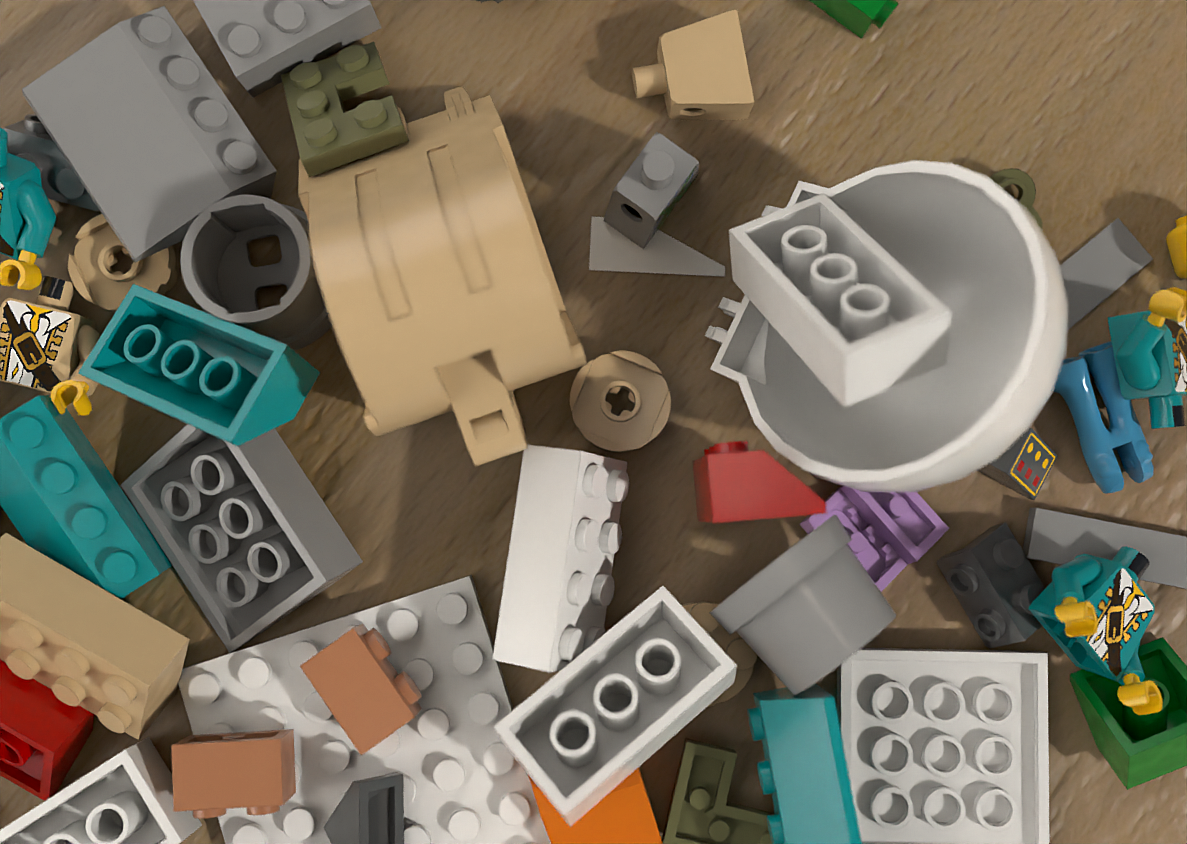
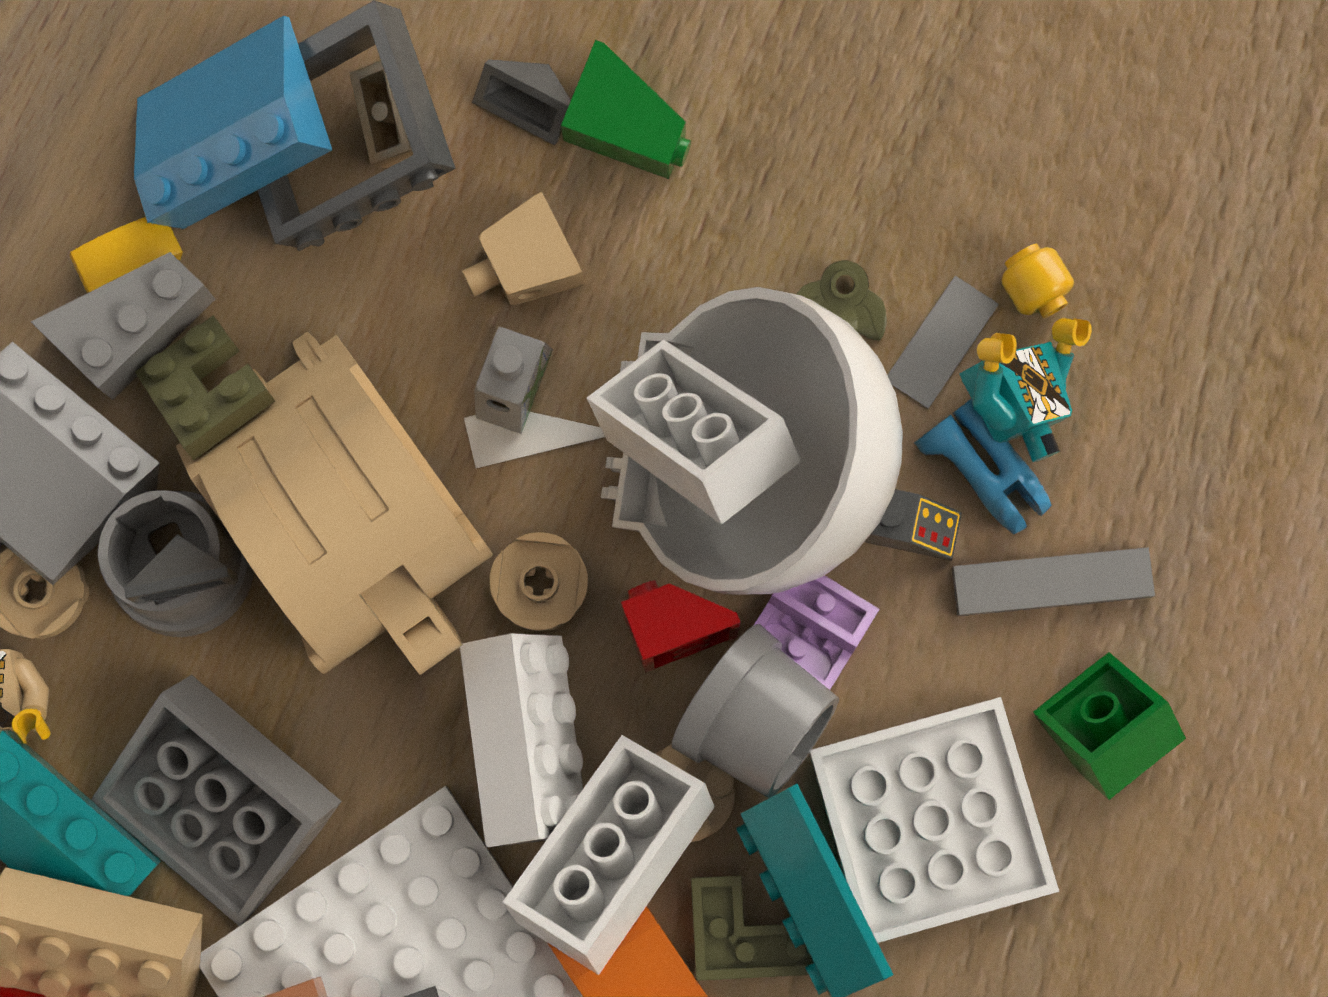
camera: 10 degrees left, 5 degrees down
(199, 368) = (141, 661): teal slope -> none
(256, 285) = (178, 571): none -> dark grey slope
(363, 687) = (375, 912): nougat brick -> none
(995, 586) = (940, 650): flat silver bracket -> none
(1099, 618) = (1036, 649): torso -> none

